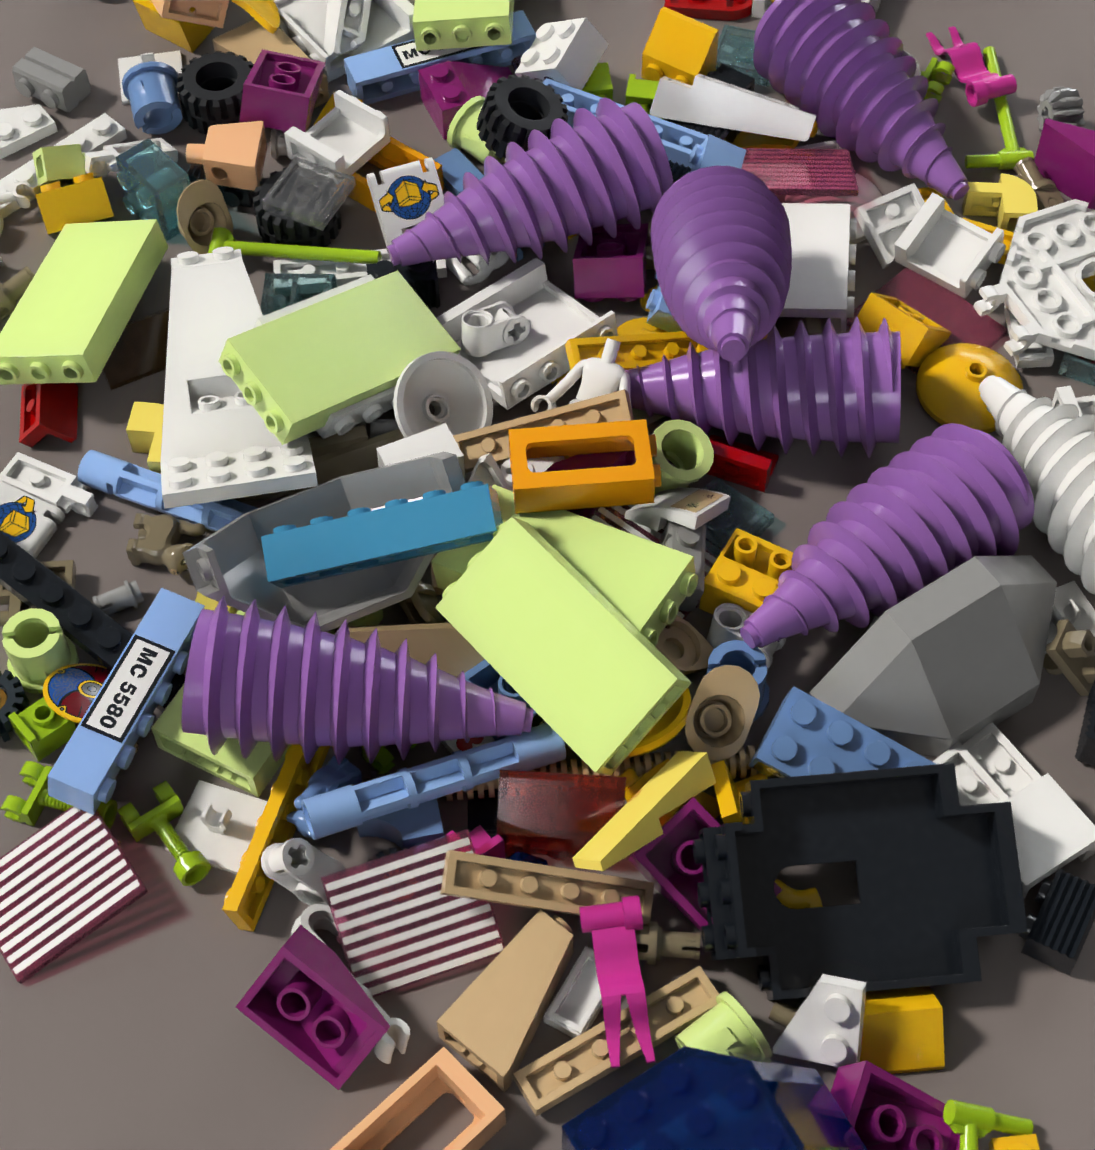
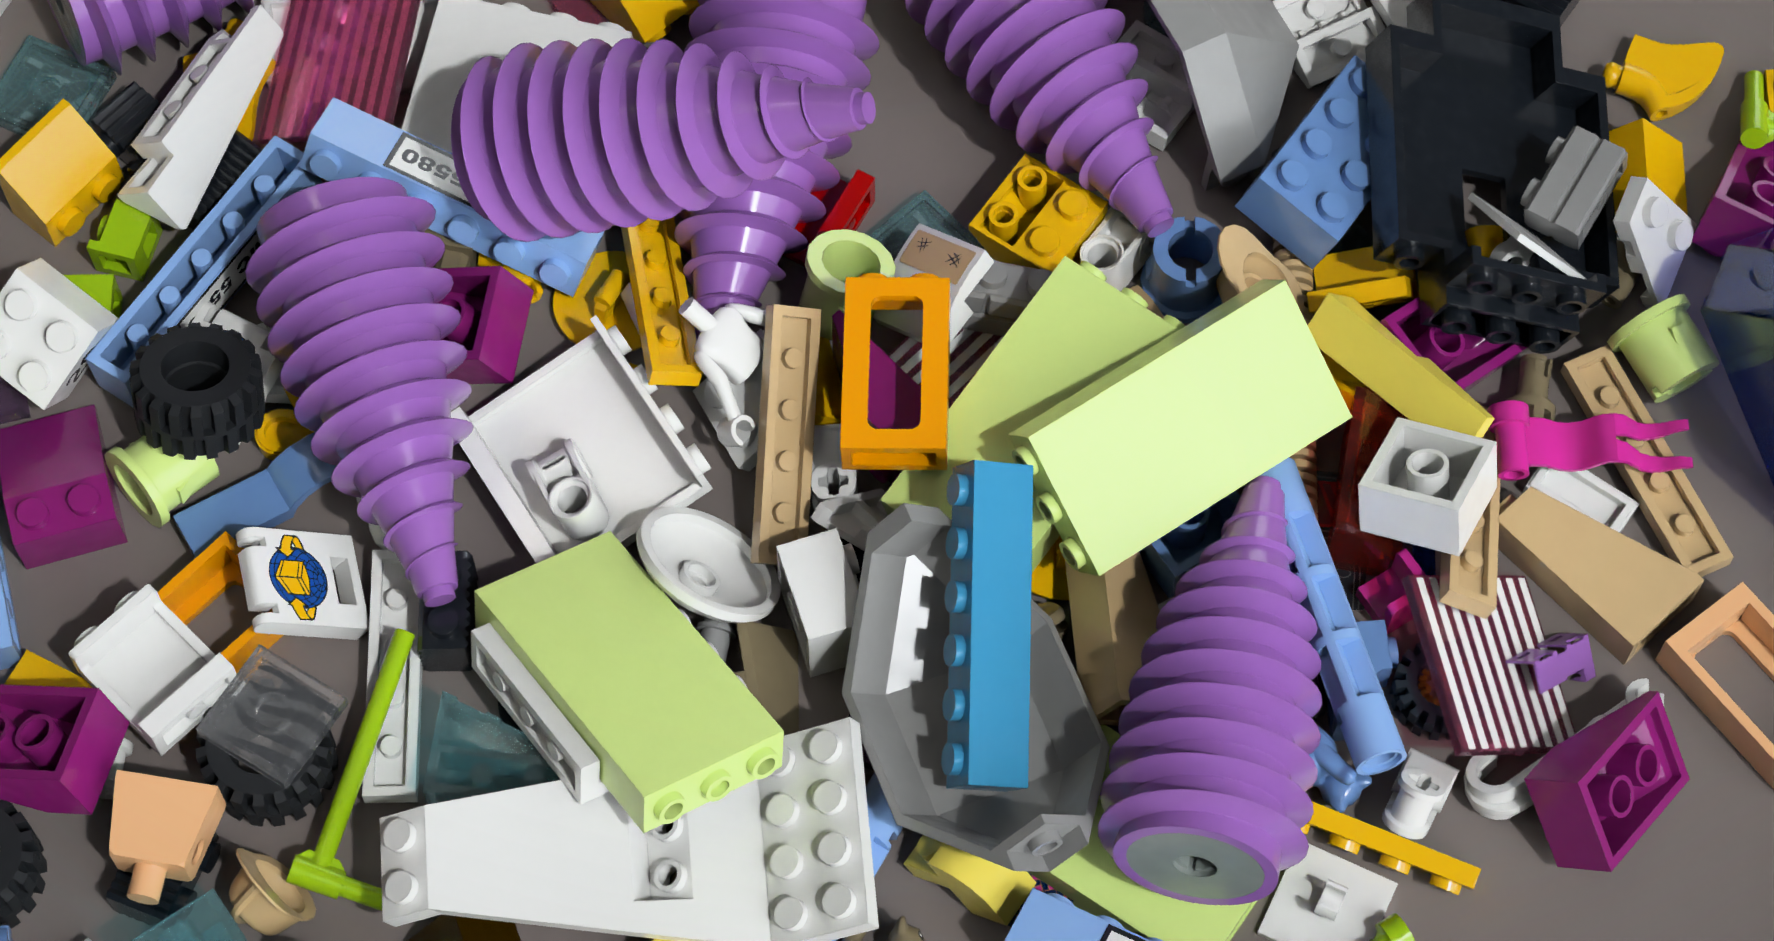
camera: 85 degrees left, 10 degrees up
(415, 967) = (1557, 667): none -> medium lavender piece
(538, 828) = (1428, 486): none -> white brick
(784, 897) = (1521, 242): none -> white piece
(851, 944) = (1574, 187): none -> light grey brick
(1010, 1048) = (1664, 75): none -> yellow arm

